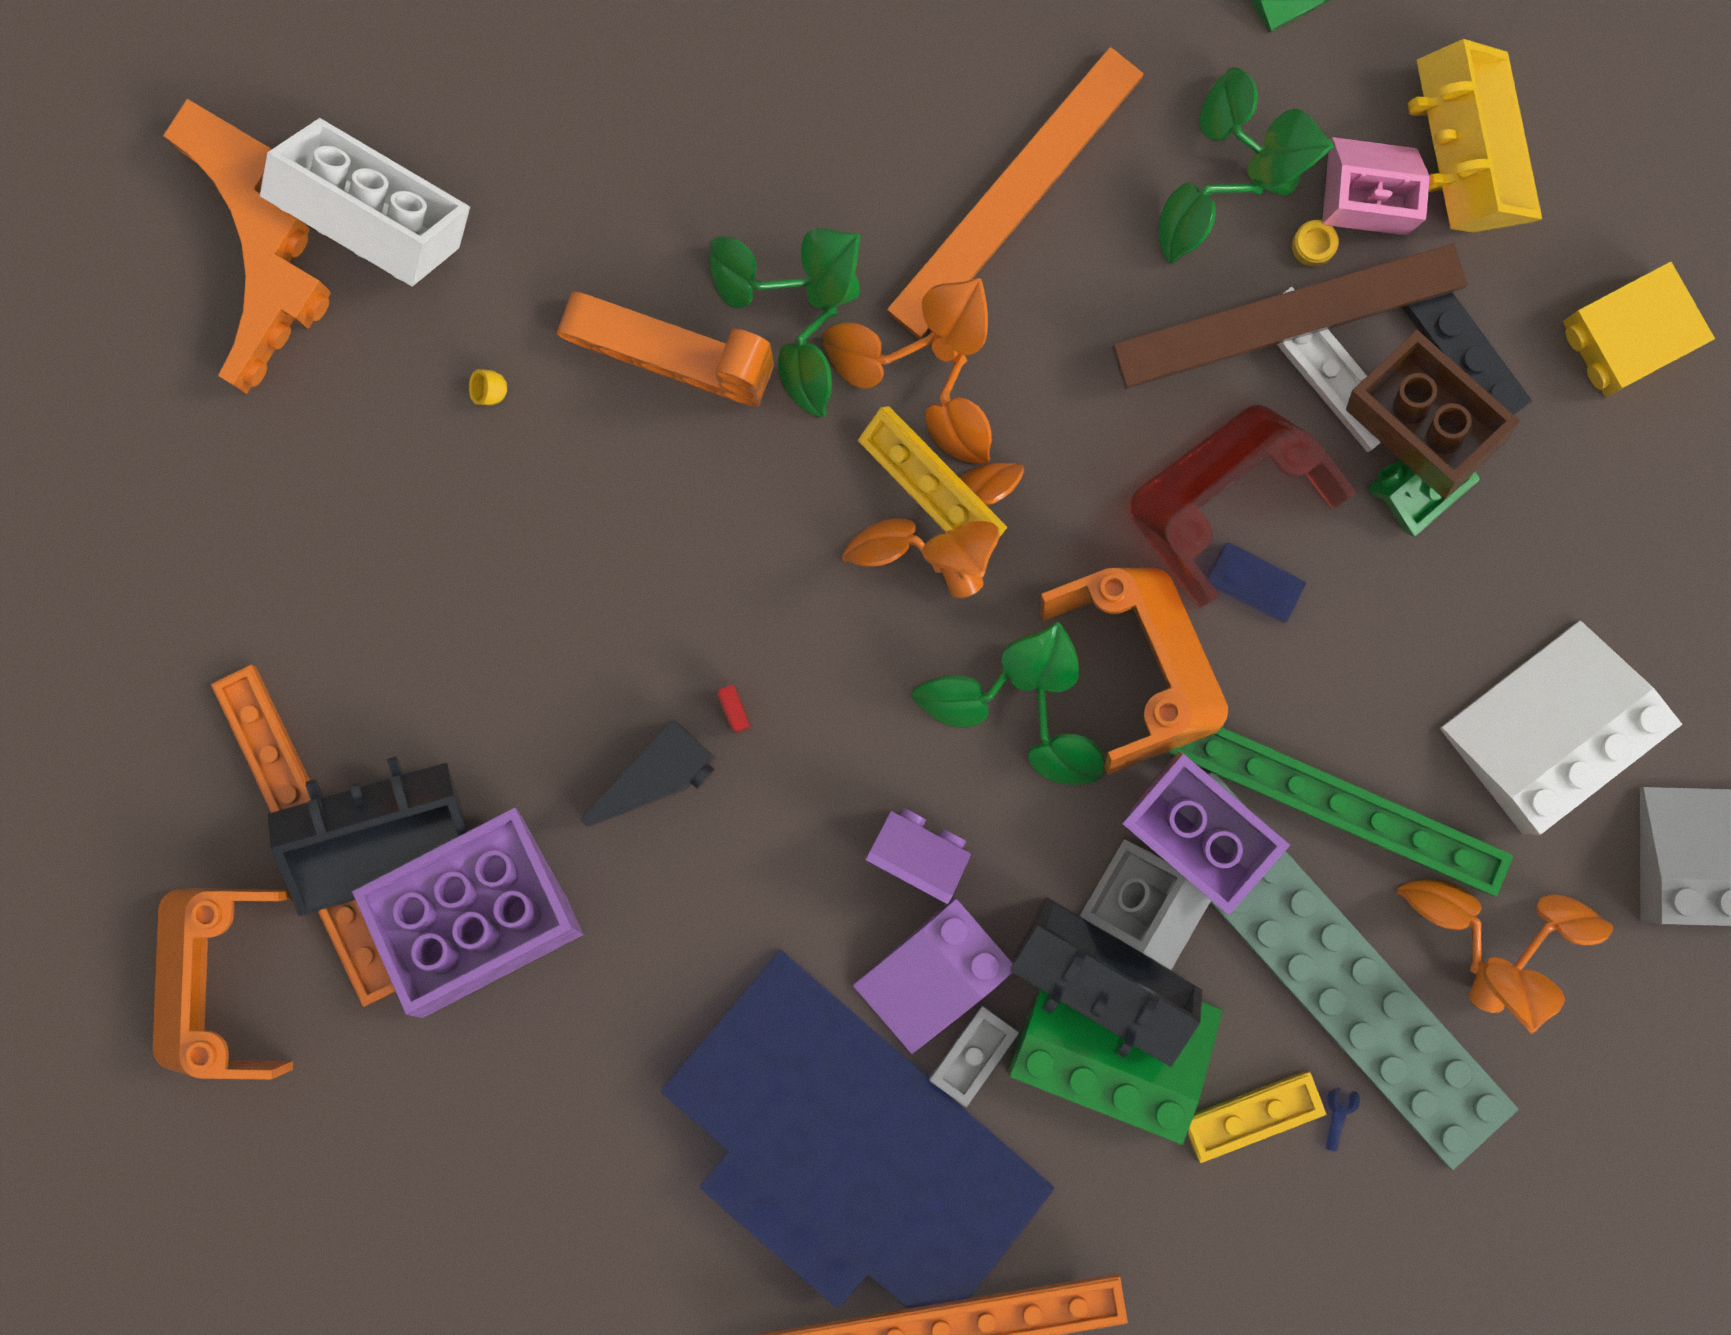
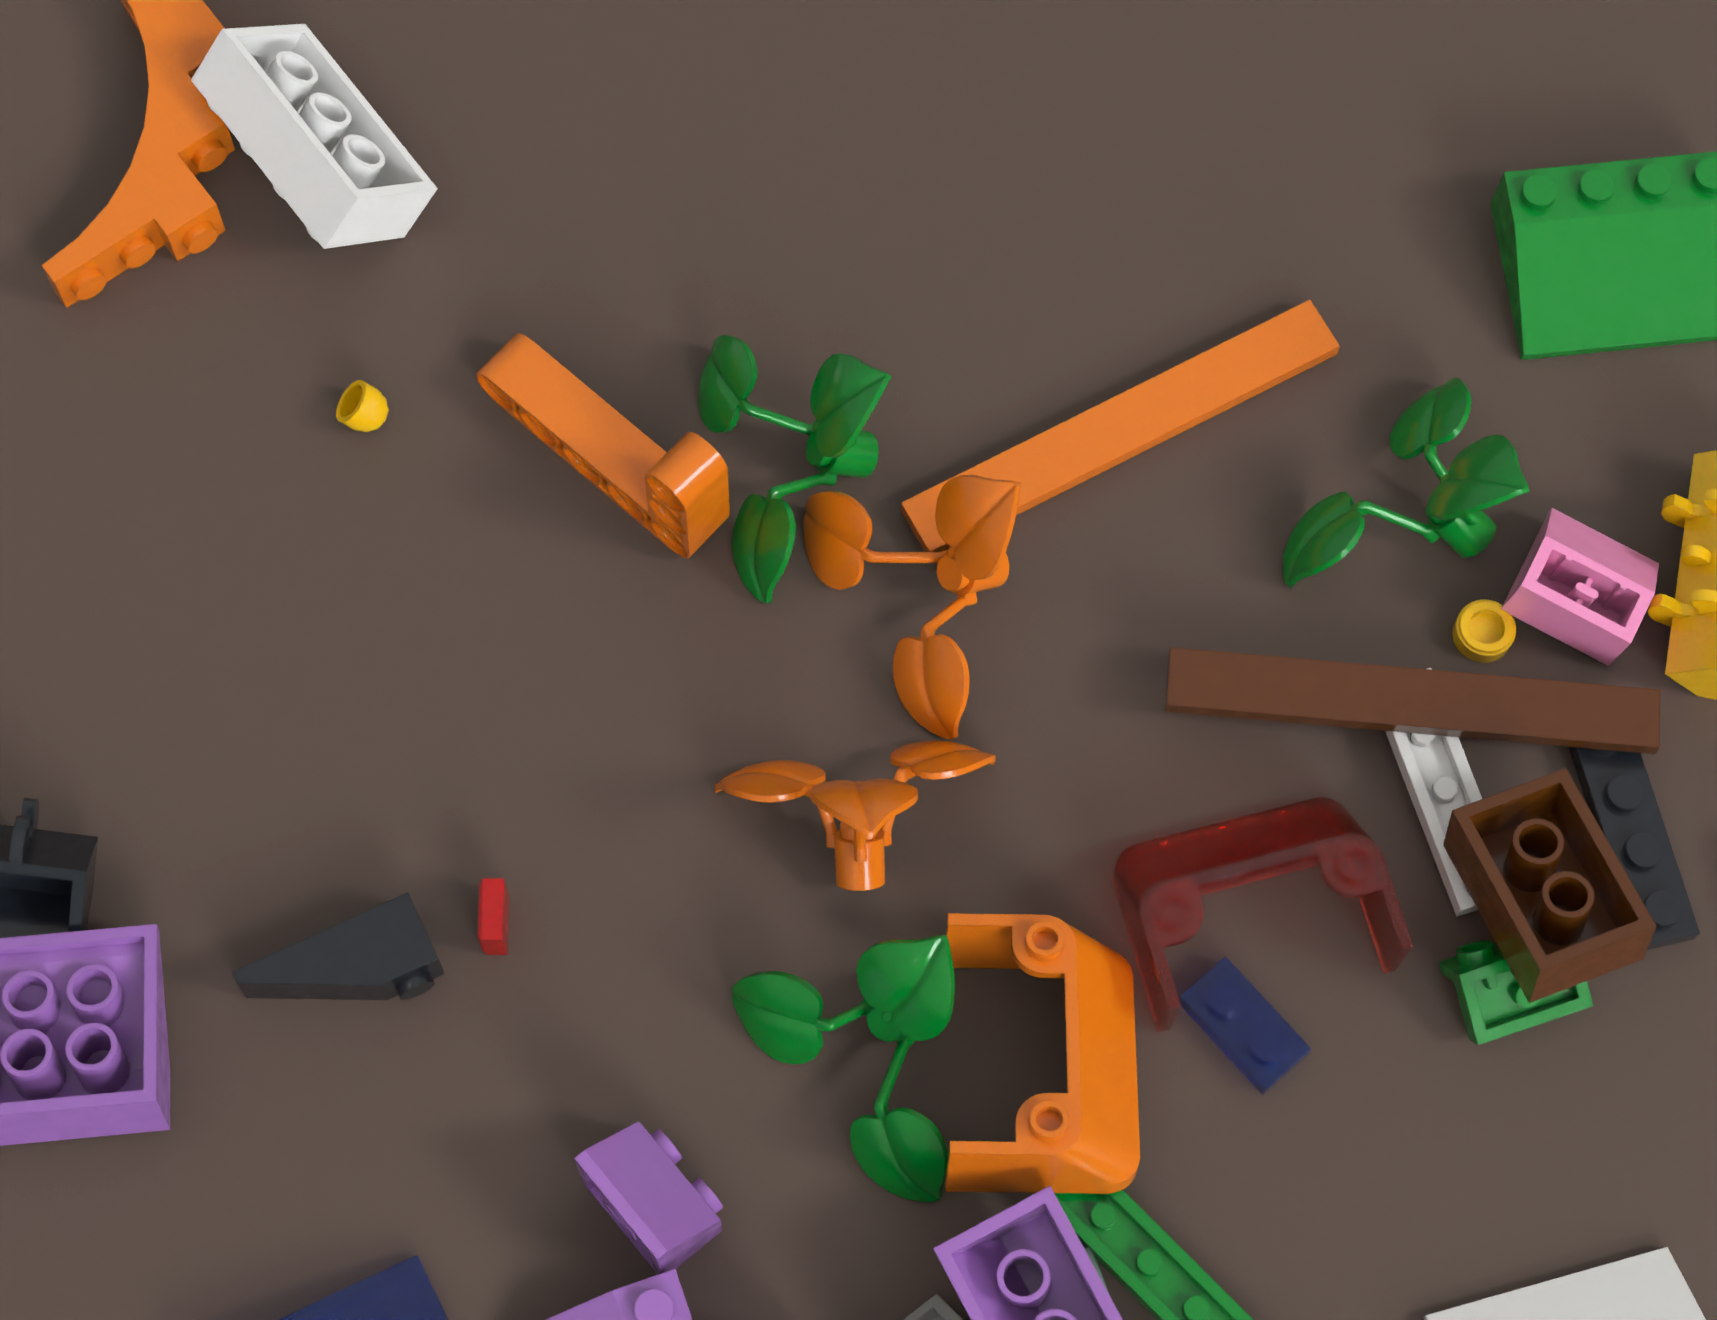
camera: 20 degrees right, 15 degrees down
(923, 473) = (864, 719): yellow tile -> none

